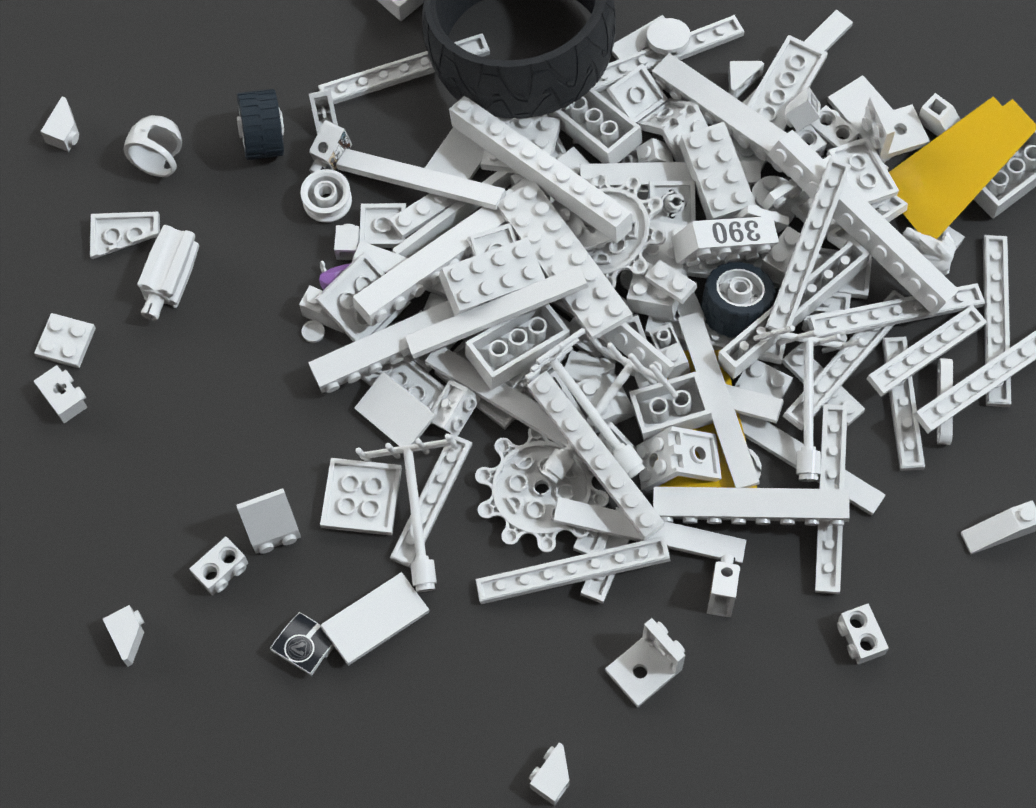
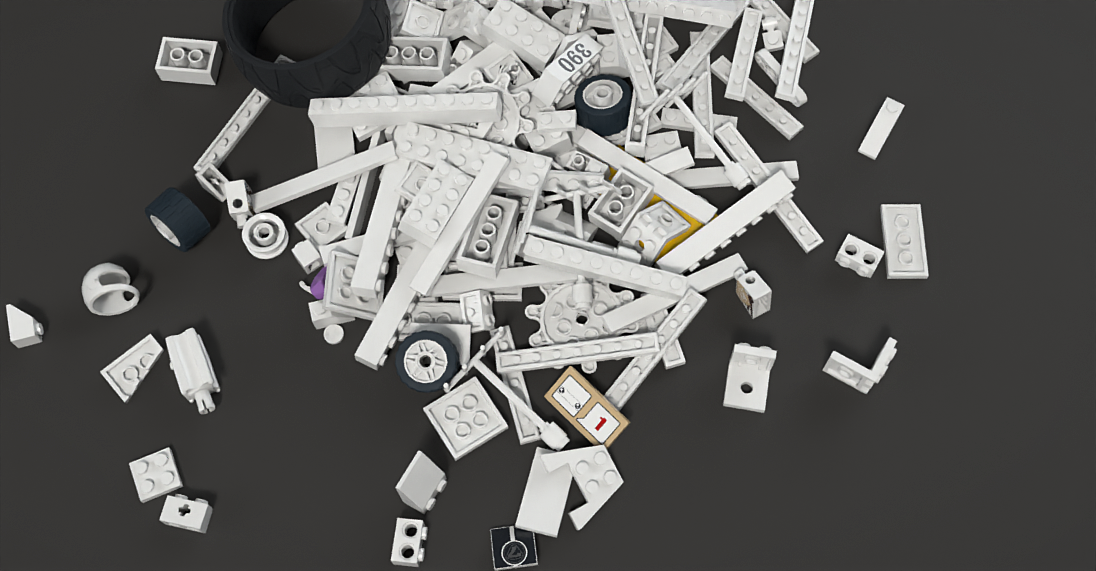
camera: 40 degrees left, 0 degrees up
(366, 416) = (411, 359): none -> wheel
(429, 634) = (592, 472): none -> white wing
(473, 573) = (586, 408): none -> tile
(509, 516) = (577, 353): none -> white tile
(553, 777) = (754, 500): white slope -> none
(769, 754) = (857, 375): none -> white bracket
(924, 655) = (904, 241): none -> white tile
(973, 357) = (772, 38): none -> white plate

